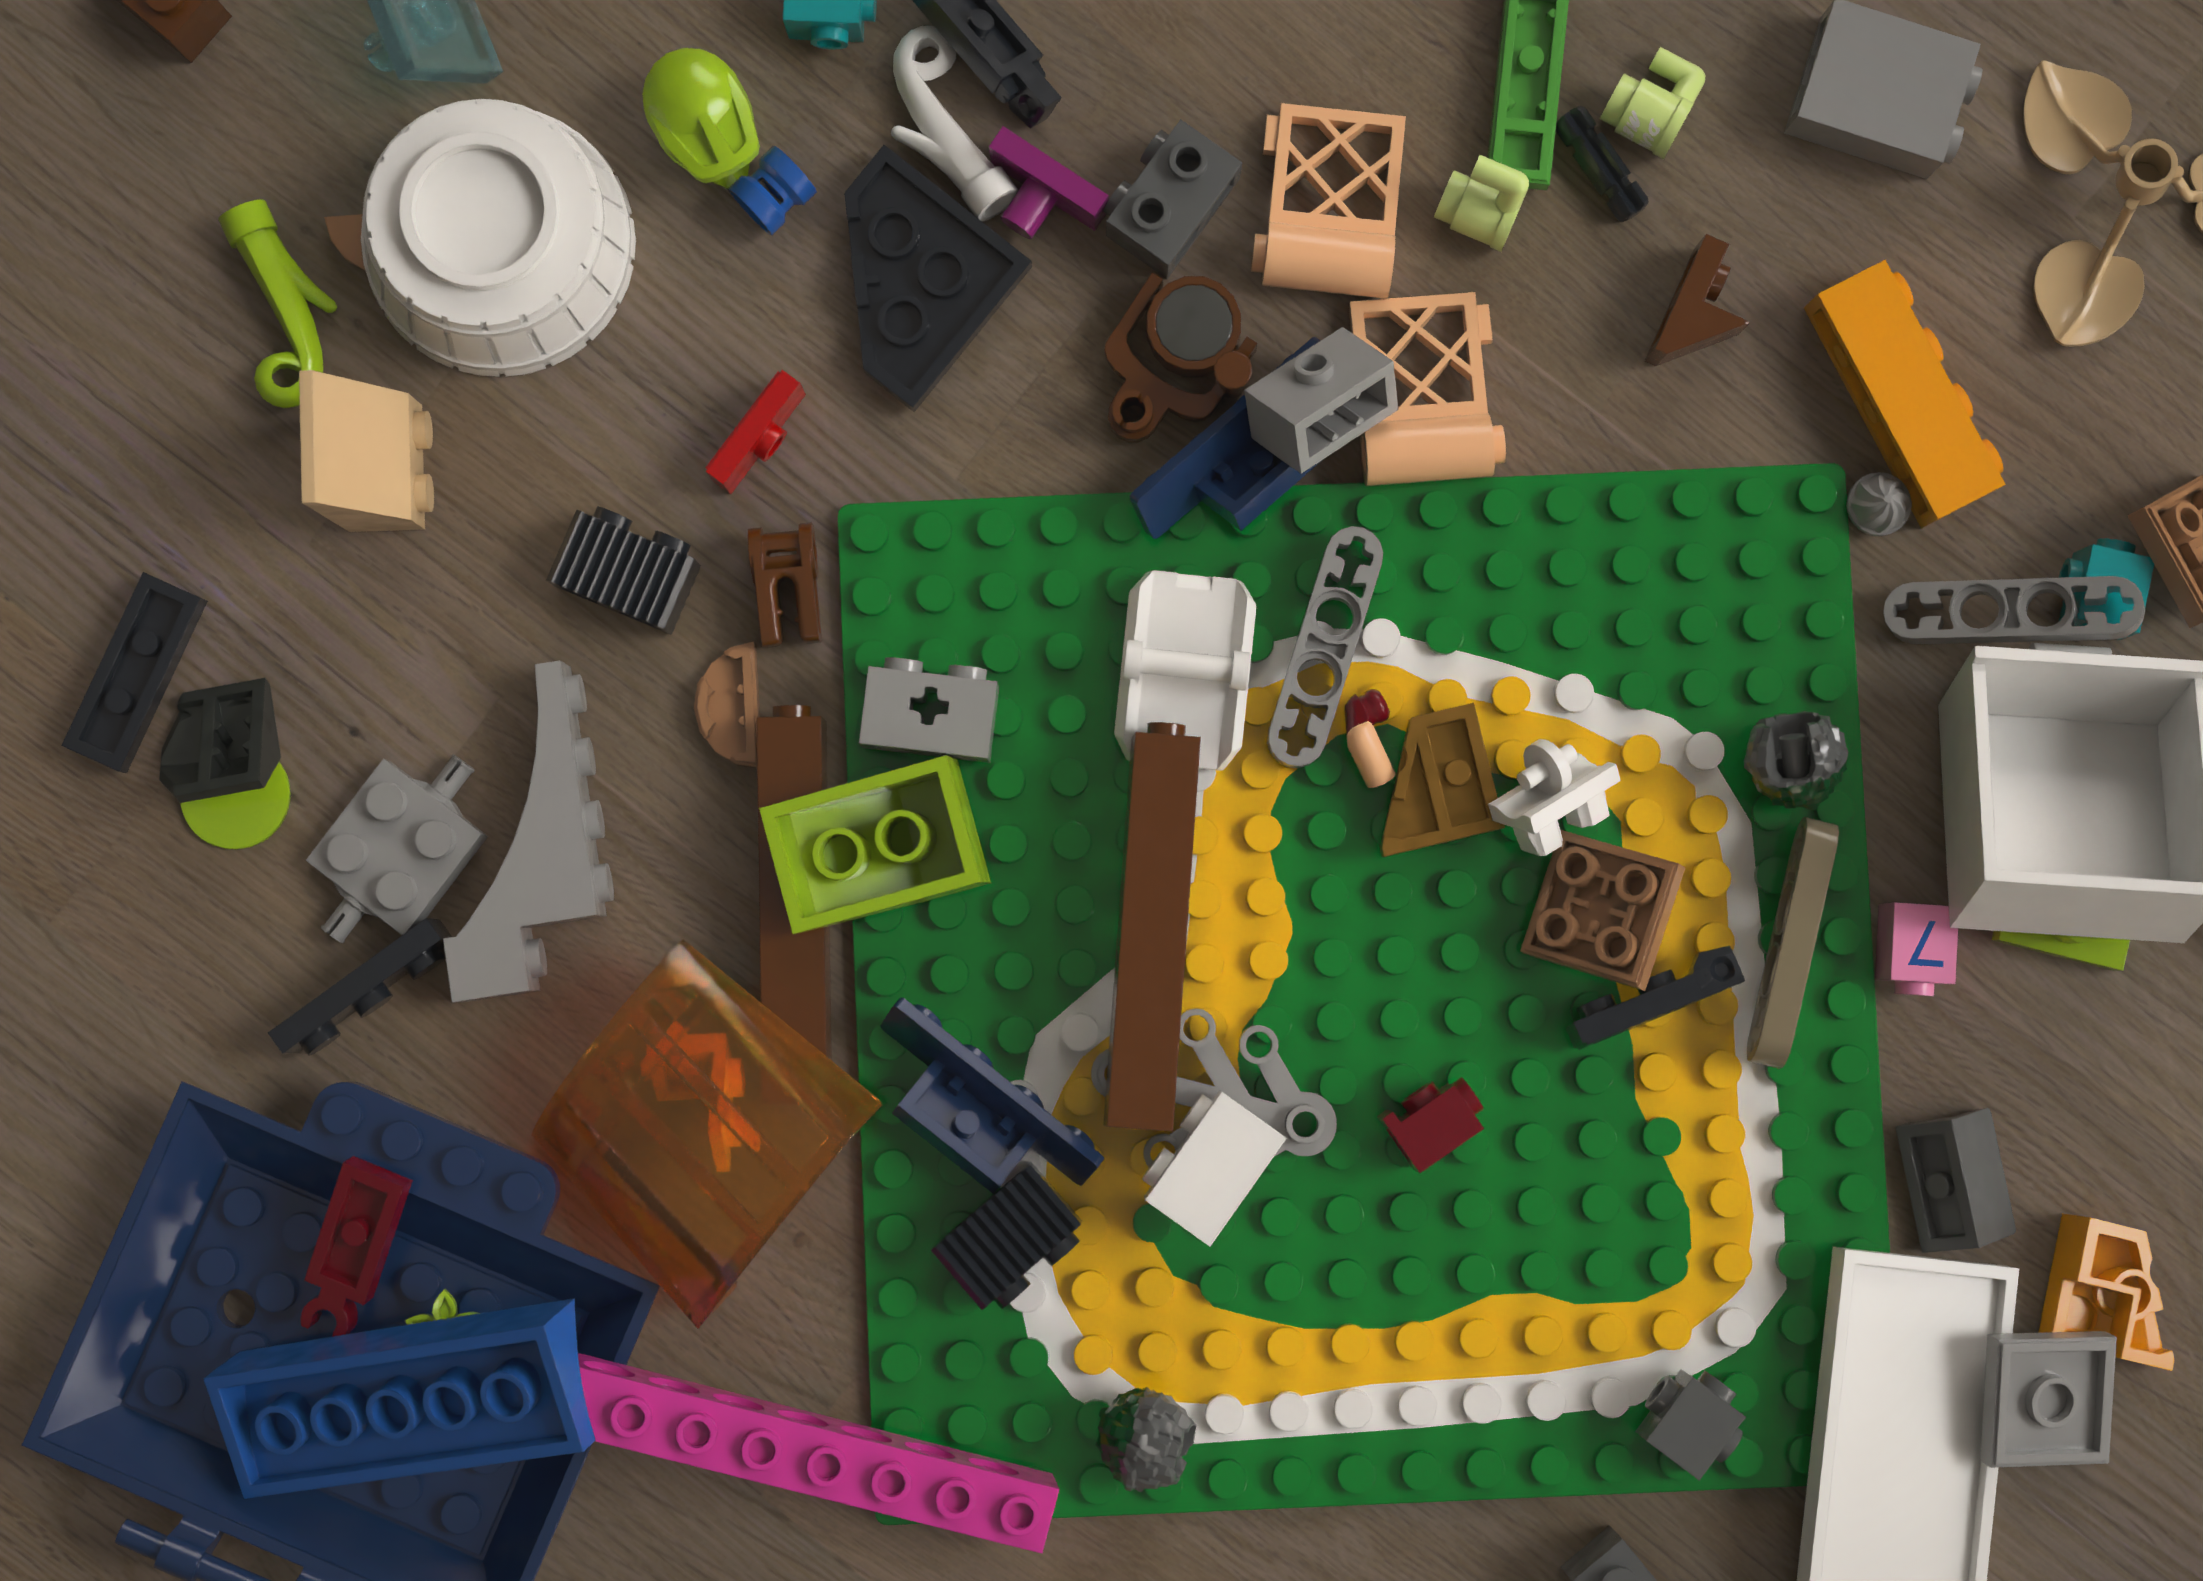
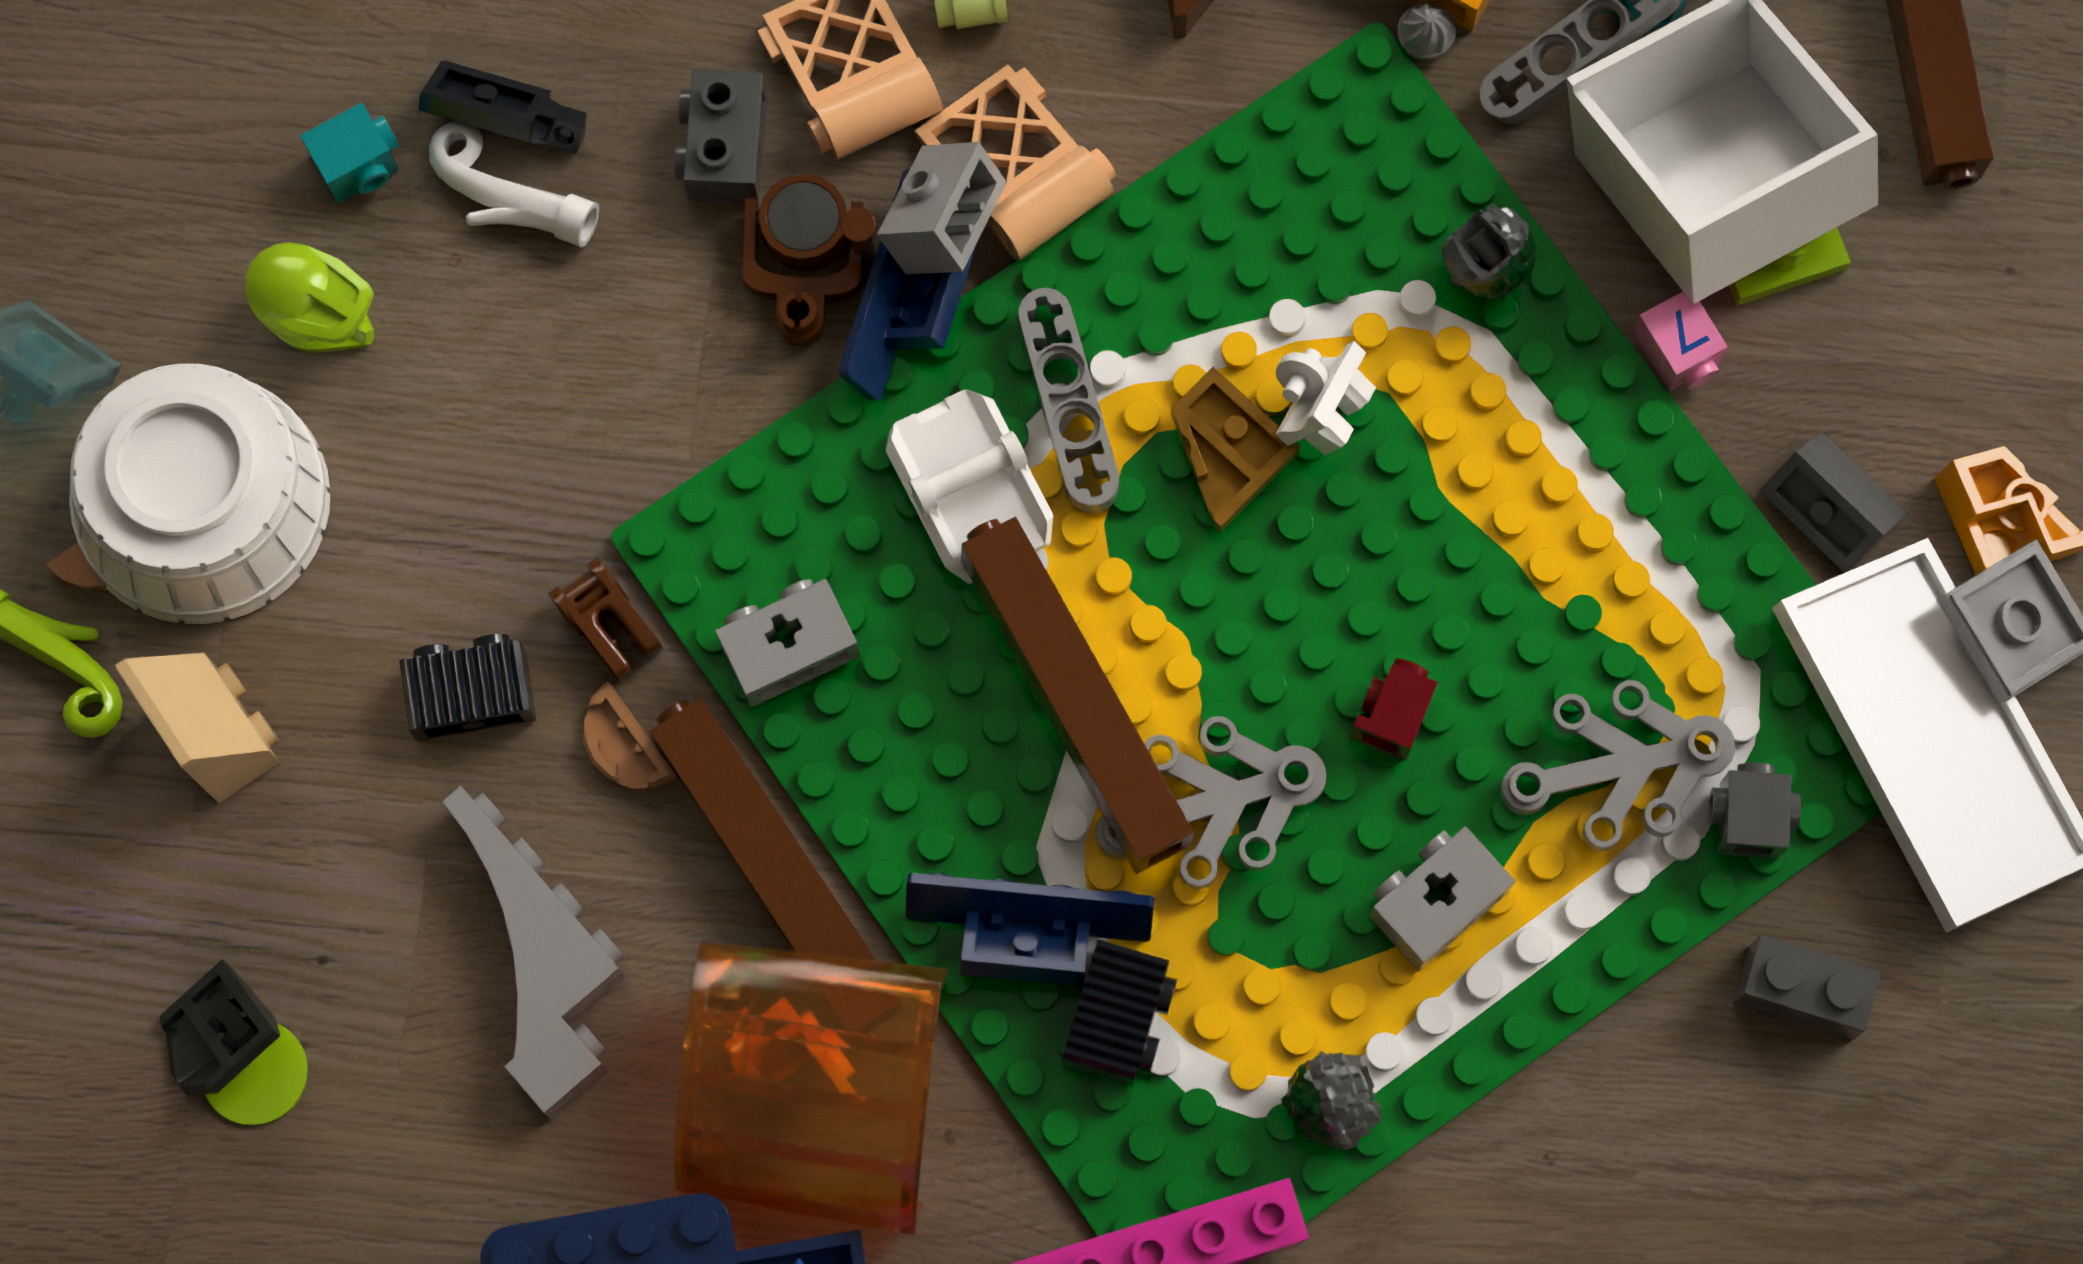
camera: 30 degrees left, 10 degrees down
(134, 673) = (110, 1021): black plate -> none
(362, 989) = (461, 1155): black plate -> none
(397, 848) = (418, 1027): light grey plate -> none
(757, 433) = (507, 515): red plate -> none
(782, 179) = (399, 322): blue wheel -> none
(875, 844) = (810, 767): lime slope -> none
(920, 275) = (561, 315): black plate -> none
(1043, 186) = (615, 187): magenta tile -> none
(1212, 1166) = (1244, 845): white brick -> none
(1363, 740) = (1145, 450): light nougat arm -> none
(1395, 1332) = (1425, 930): none -> light grey brick
(1603, 910) = (1418, 461): medium nougat tile -> none
(1610, 1303) = (1628, 762): none -> light grey plant
(1708, 975) = (1507, 504): black hinge -> none
(1792, 942) = (1582, 396): dark tan beam -> none

